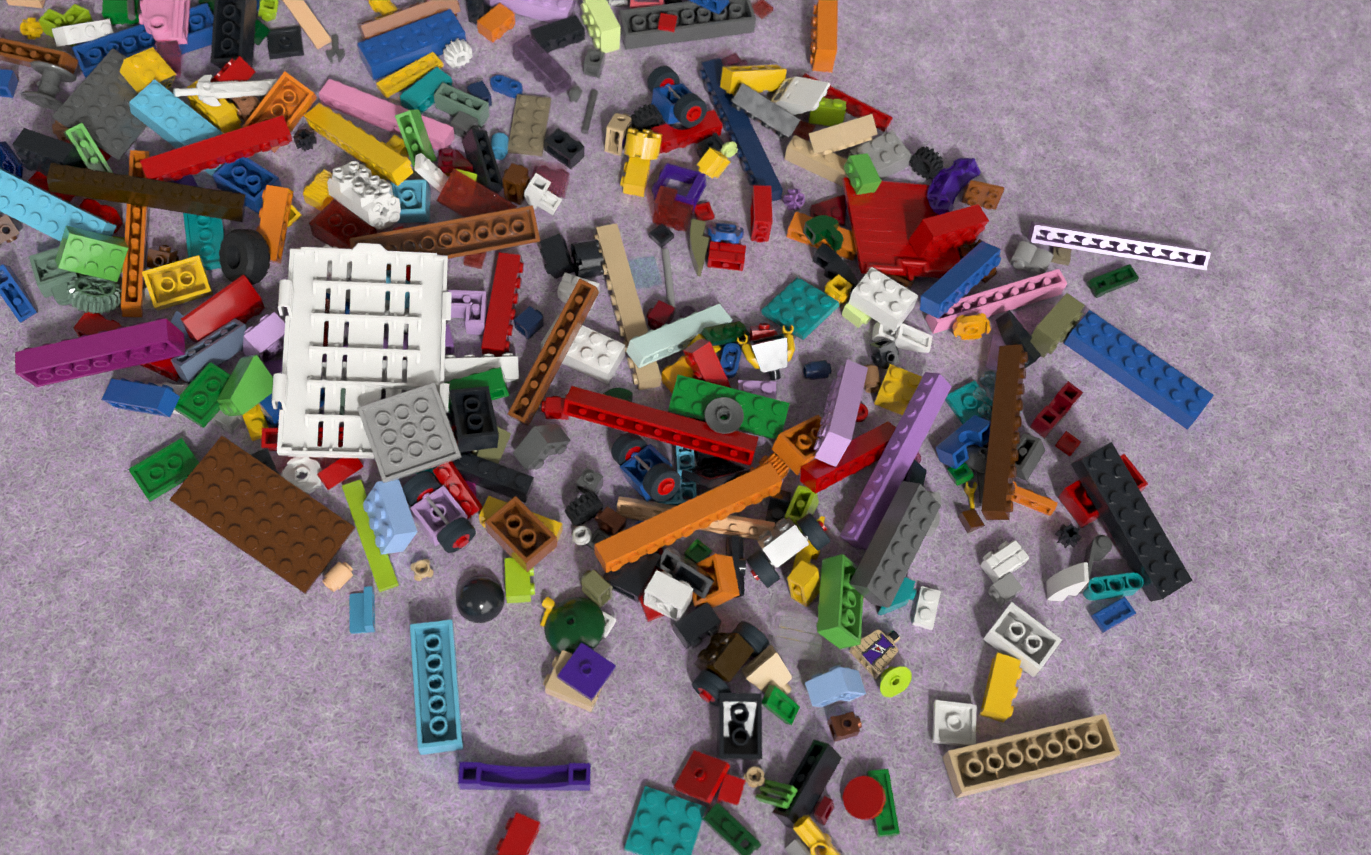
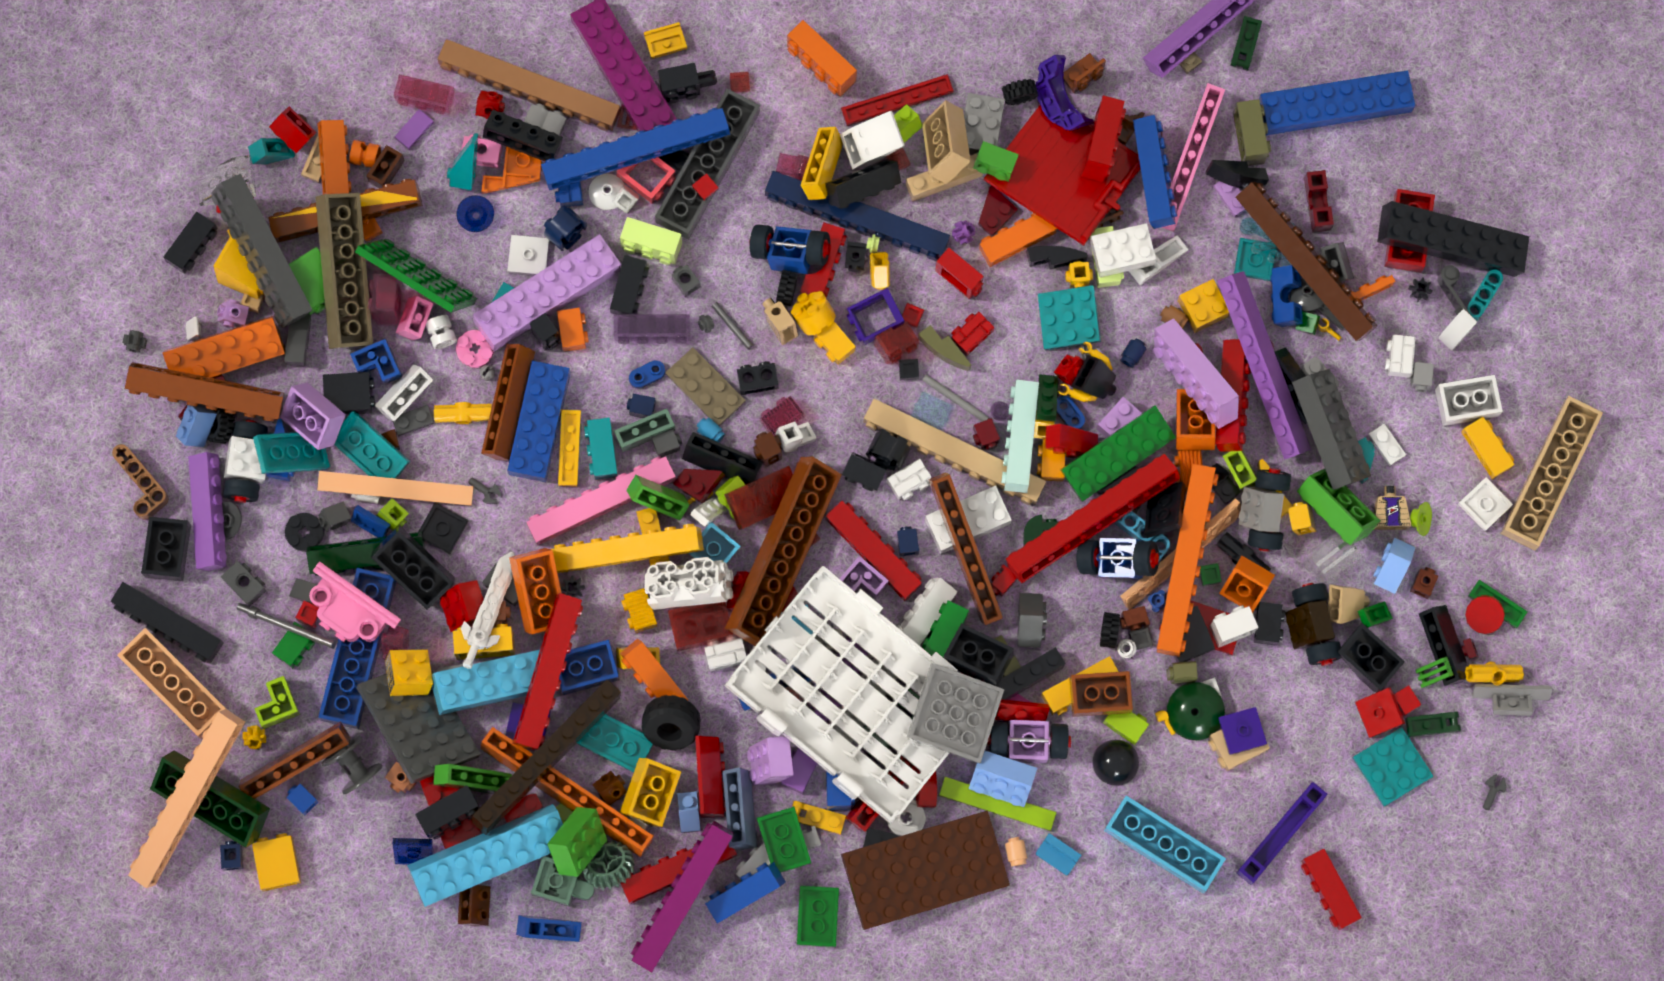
camera: 45 degrees left, 15 degrees up
(82, 32) = (308, 696): white brick -> none
(245, 387) = (811, 806): bright green slope -> none
(422, 564) = (1063, 786): tan plate -> none
(457, 53) = (584, 391): white gear -> none
(589, 482) = (1090, 608): dark grey brick -> none
(685, 570) = (1225, 598): black slope -> none
(724, 407) = (1128, 455): dark grey dish -> none
(725, 231) = (960, 316): blue plate -> none
(758, 772) = (1407, 671): tan plate -> none
(823, 228) = (1019, 237): dark green brick -> none
(884, 353) = (1163, 288): black brick -> none
(970, 520) = (1349, 349): reddish brown slope -> none
(971, 326) = (1200, 198): light orange plate -> none
(1031, 259) = (1175, 90): light grey brick -> none
(1068, 443) = (1349, 216): red tile -> none
(1113, 614) = (1503, 314): blue plate -> none

